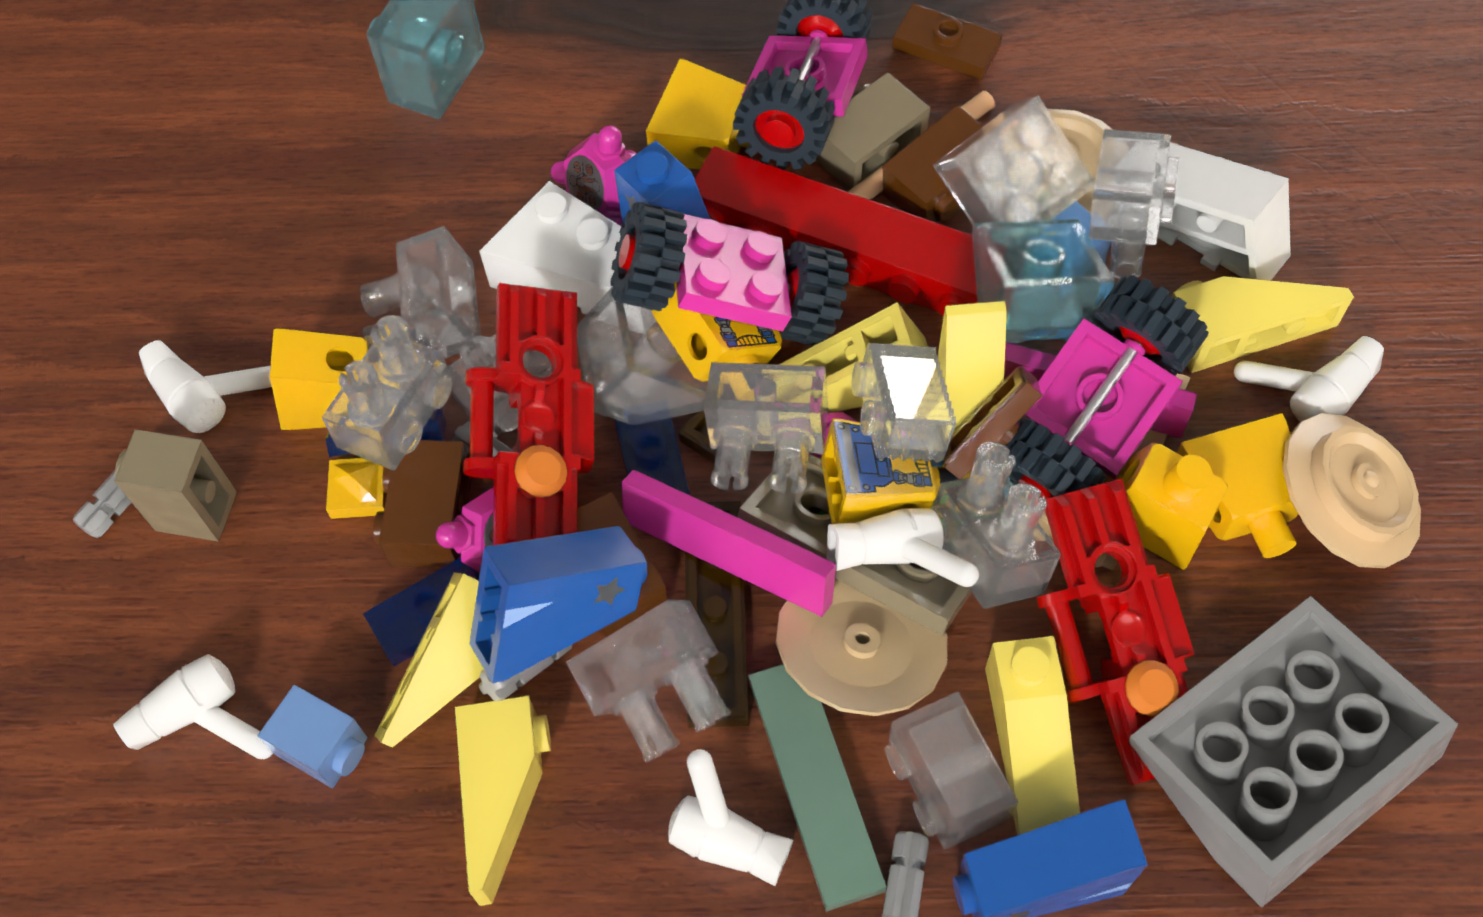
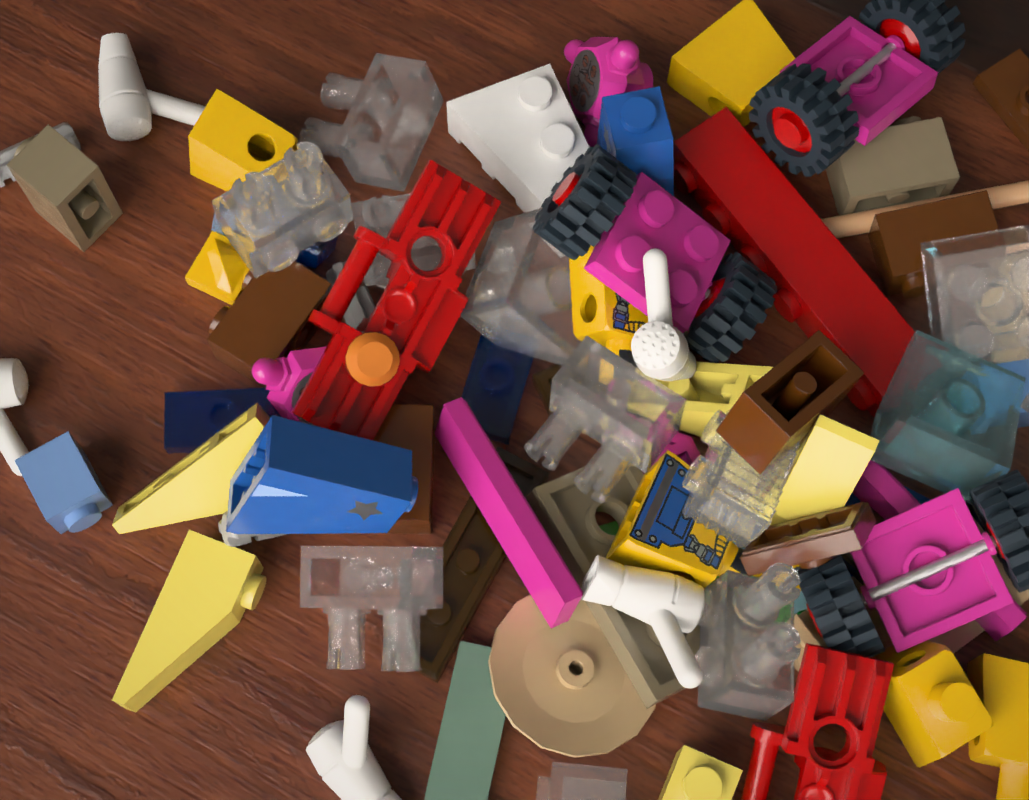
camera: 25 degrees right, 10 degrees up
(777, 332) = (658, 345): none -> white piece
(911, 316) = (788, 401): none -> reddish brown brick

